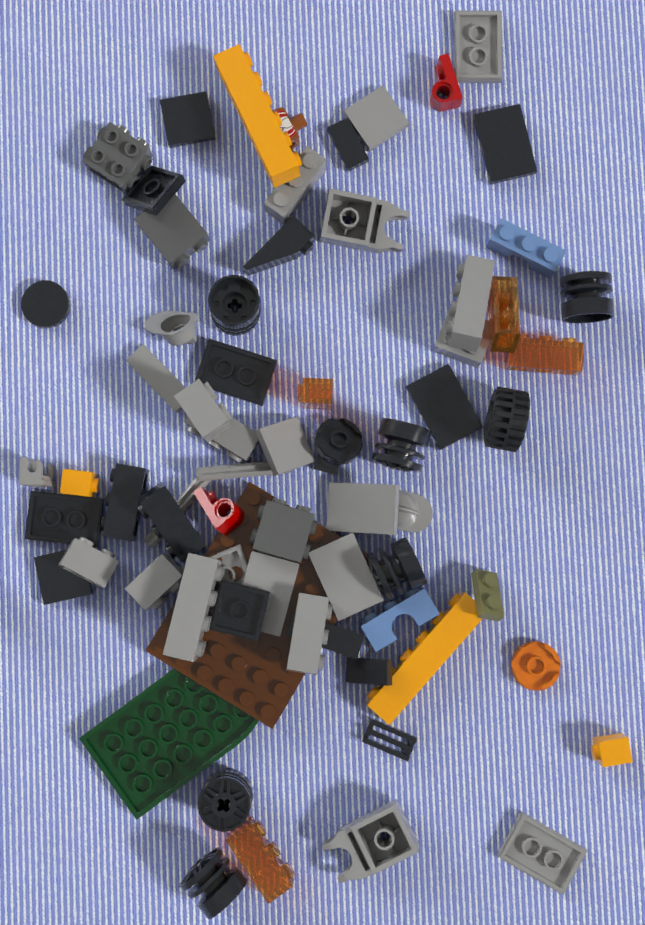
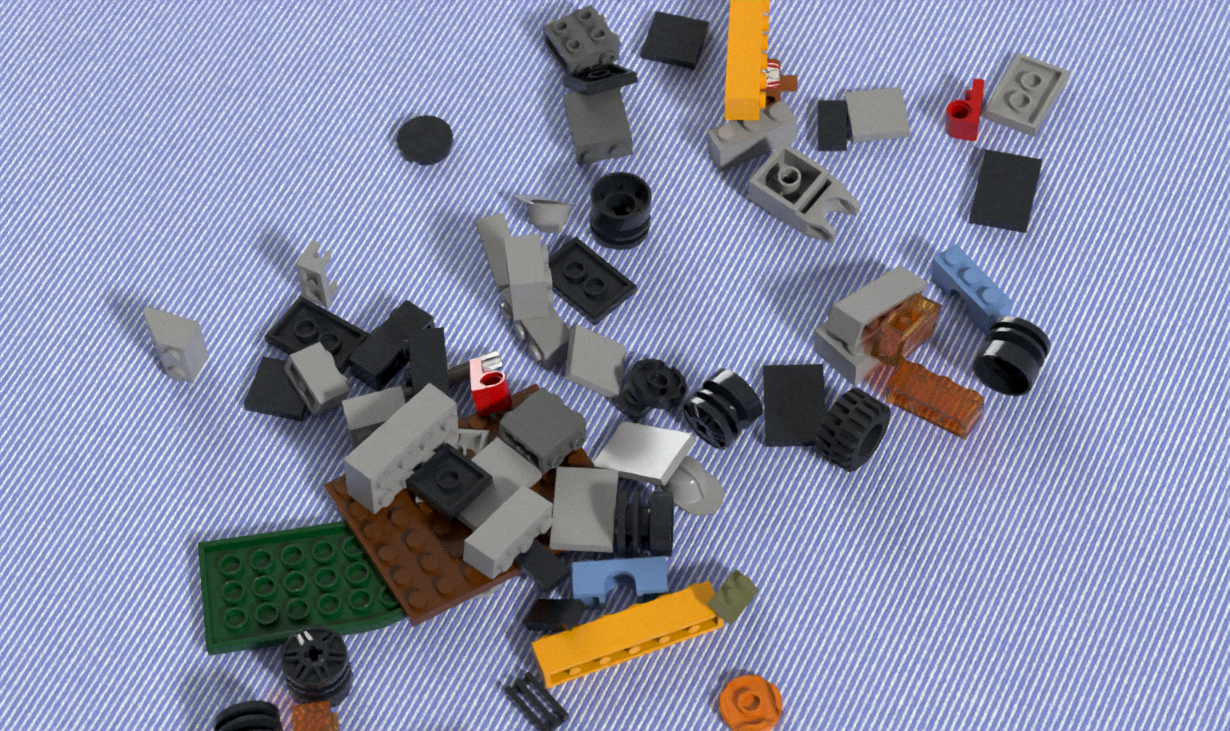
camera: 30 degrees right, 30 degrees down
(79, 483) = (355, 306): light orange brick -> none
(233, 471) = (531, 366): light grey axle -> none
(284, 246) = (703, 185): black slope -> none
(316, 393) = (658, 324): clear orange brick -> none

